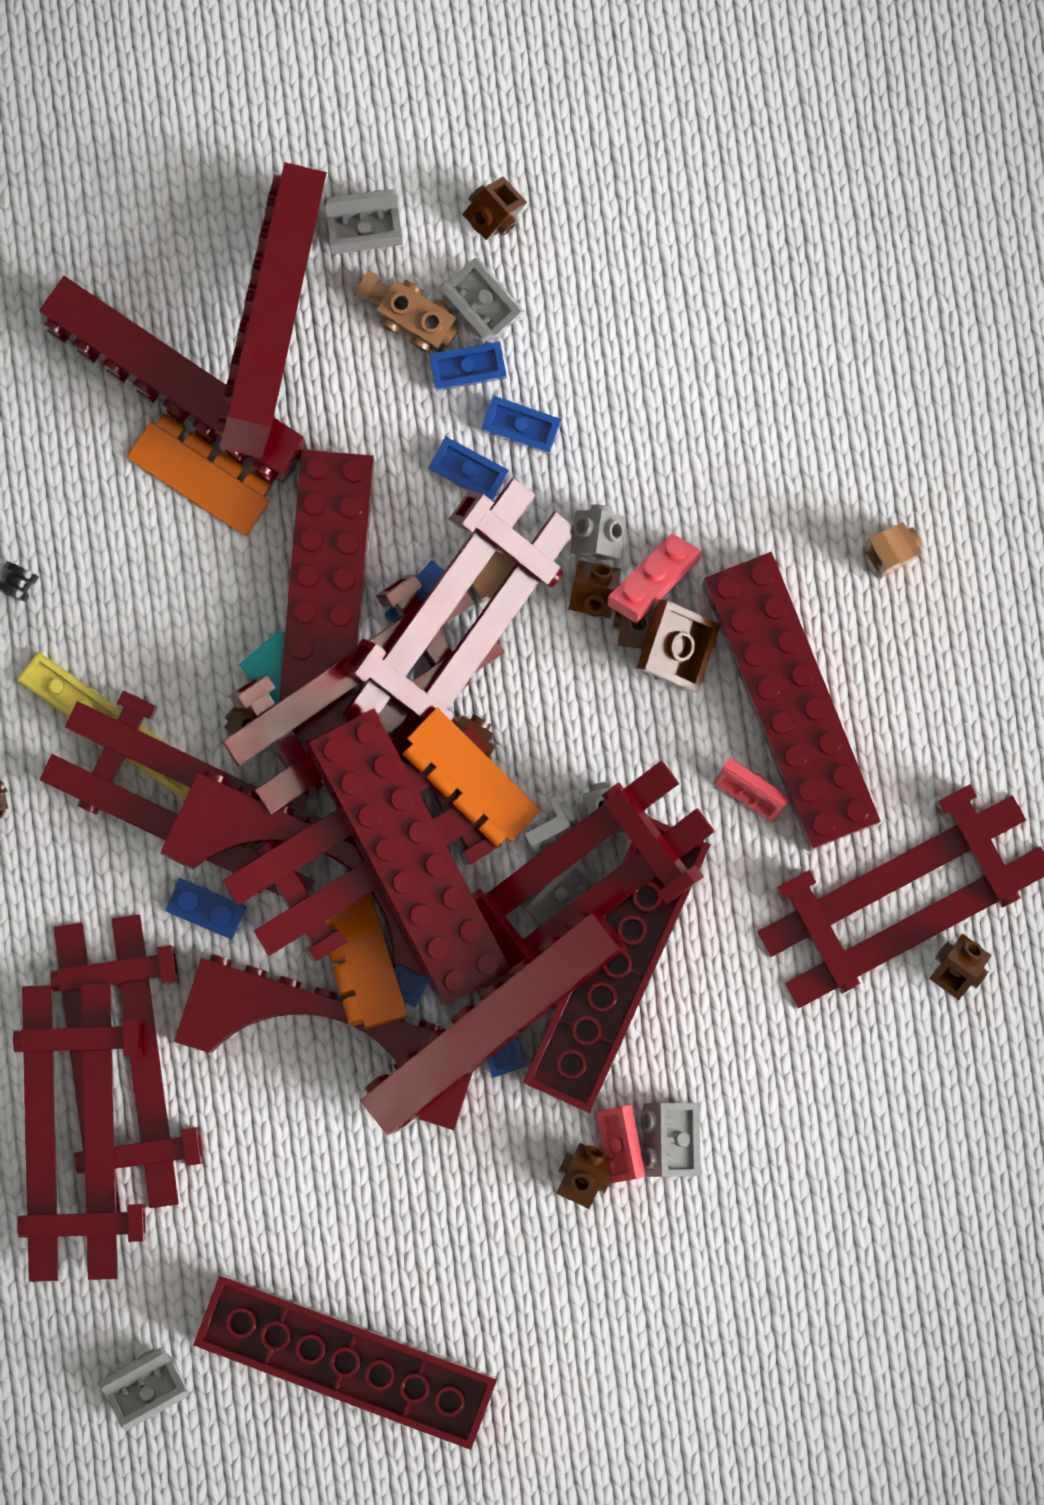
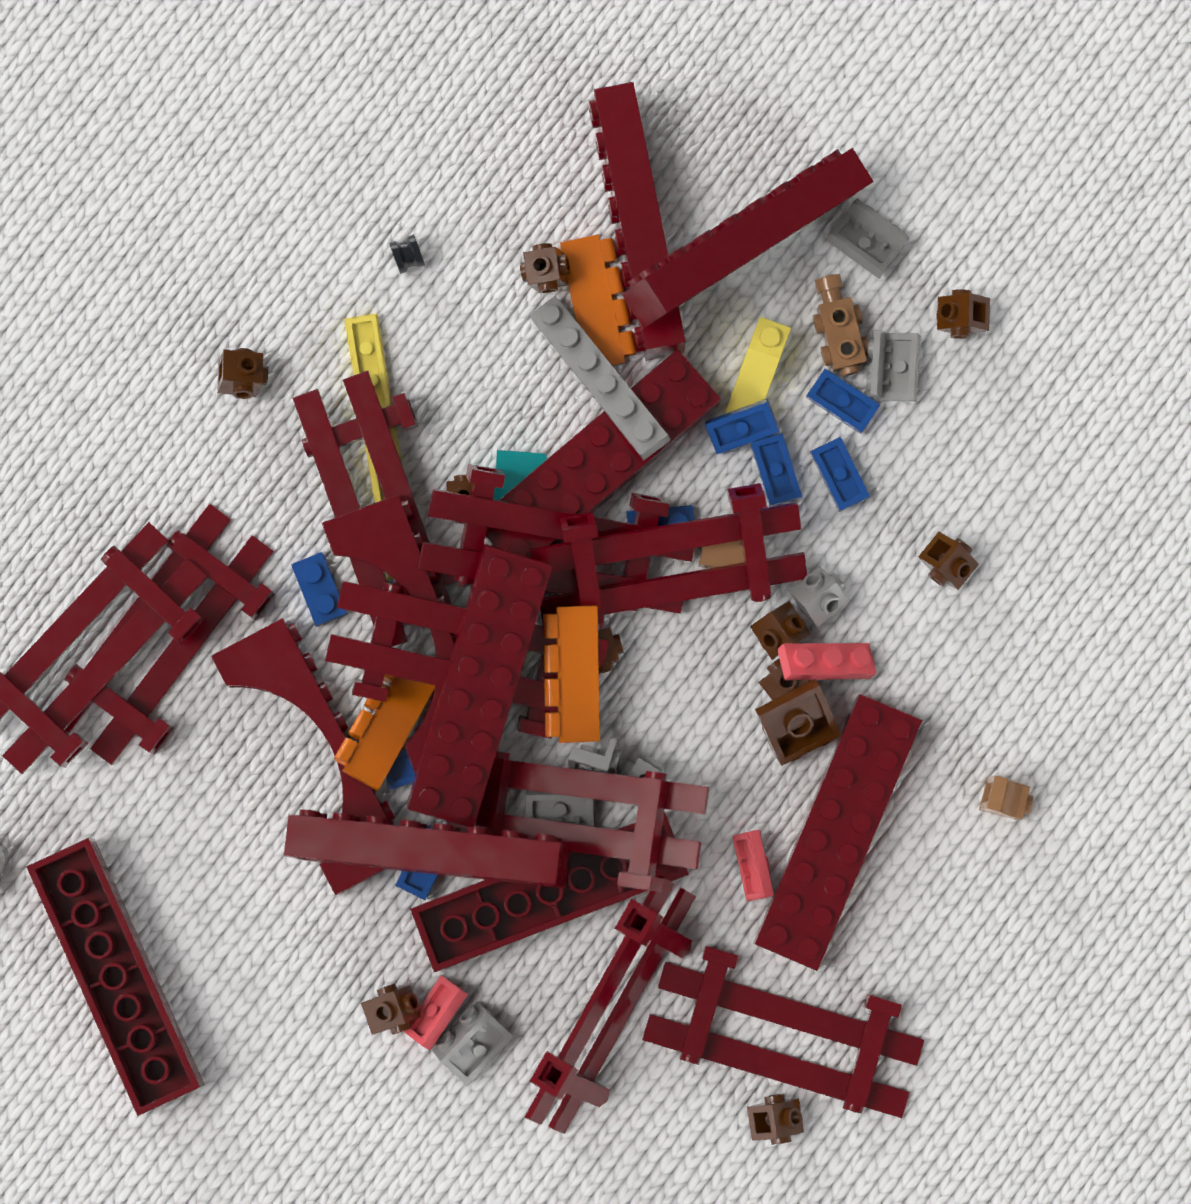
camera: 45 degrees right, 0 degrees up
(147, 484) = (552, 276): none -> reddish brown brick
(263, 530) = (599, 378): none -> light grey plate
(379, 407) = (759, 364): none -> light yellow slope
(409, 461) = (742, 426): none -> blue plate
(670, 409) = (948, 560): none -> reddish brown brick
(763, 1094) = (557, 1074): none -> dark red fence

